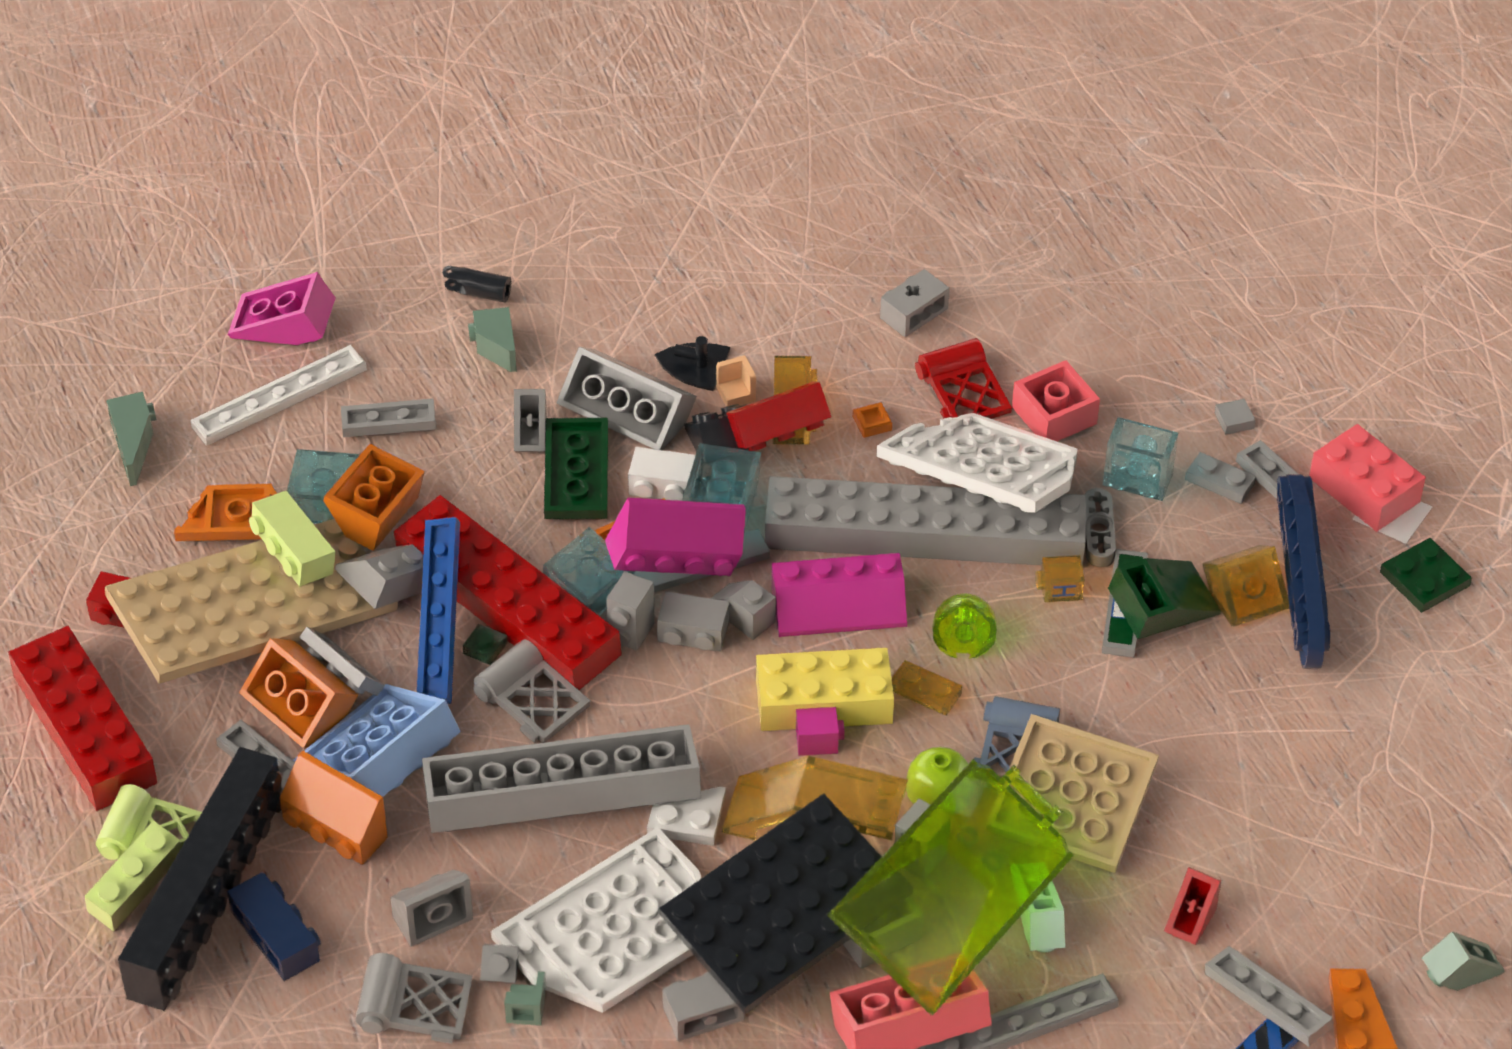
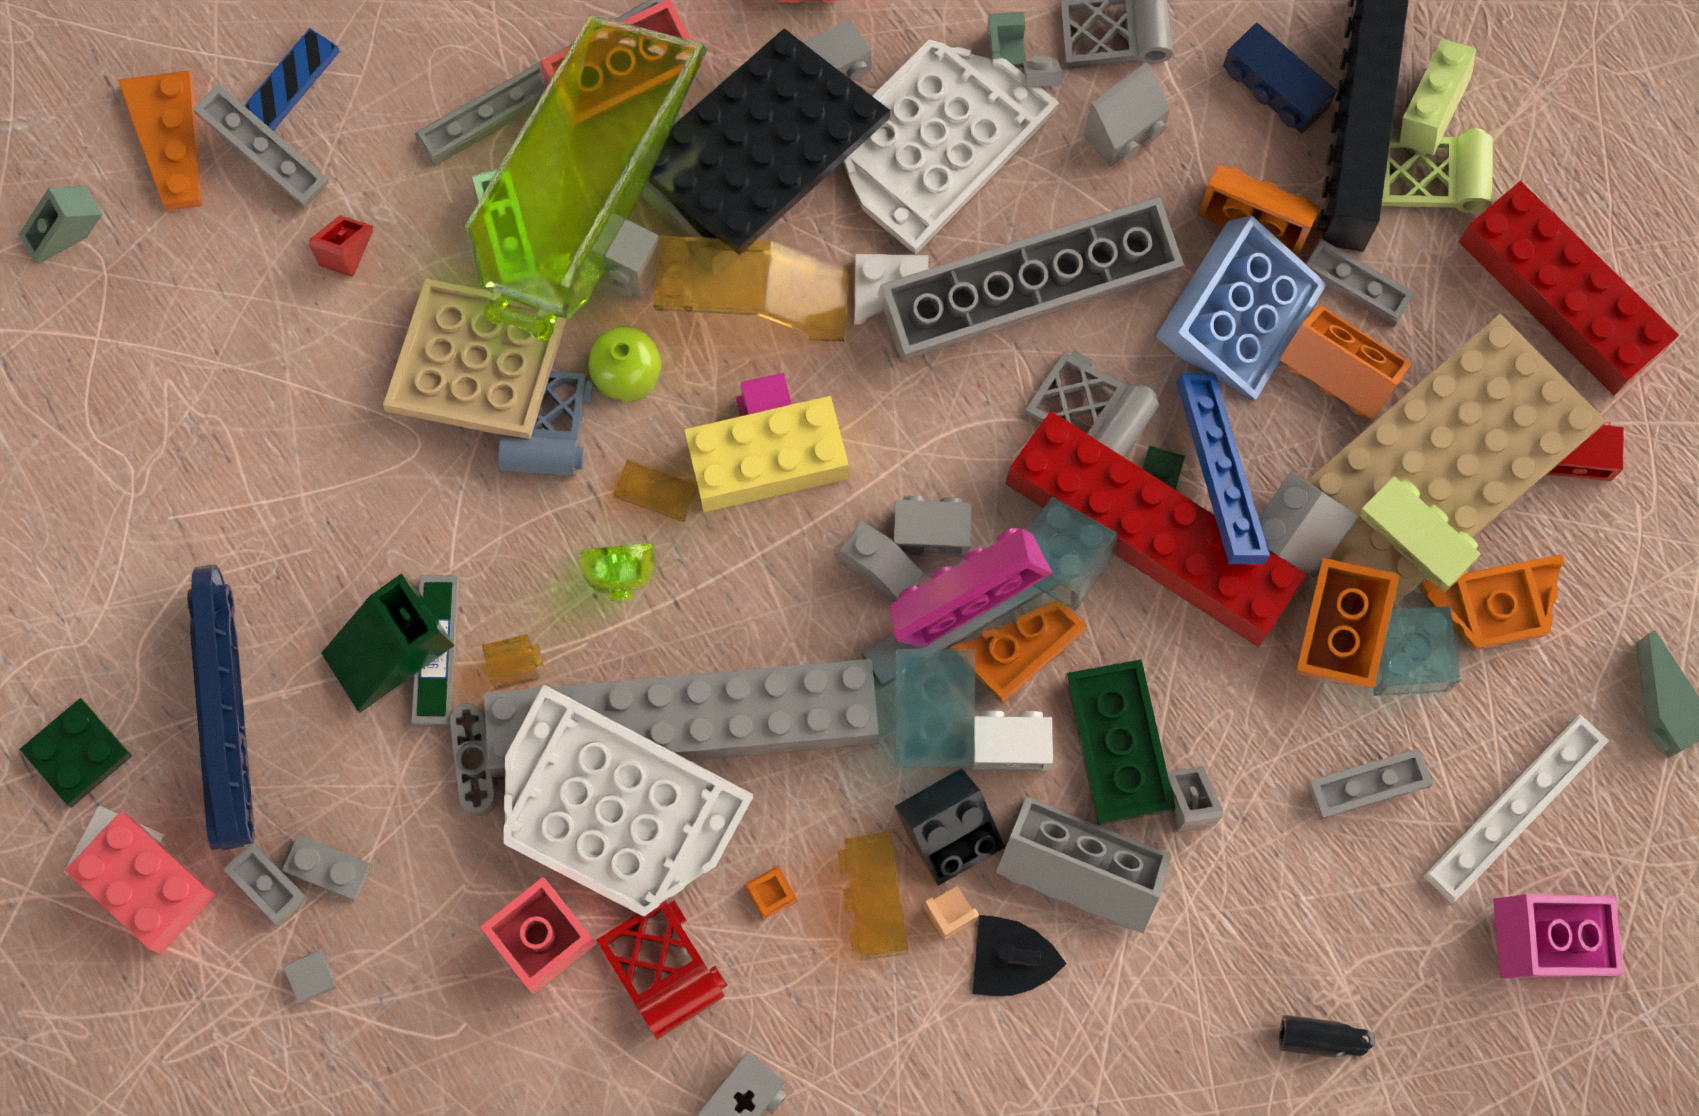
camera: 170 degrees right, 25 degrees up
(341, 663) = (1311, 402): light grey plate -> none
(494, 336) = (1274, 940): sand green slope -> none
(631, 609) = (1003, 506): light grey brick -> none
(779, 416) = (882, 816): red brick -> none
(839, 594) = (771, 595): dark pink slope -> none
(1140, 458) = (423, 846): clear light blue brick -> none
(1247, 584) = (291, 692): clear yellow slope -> none

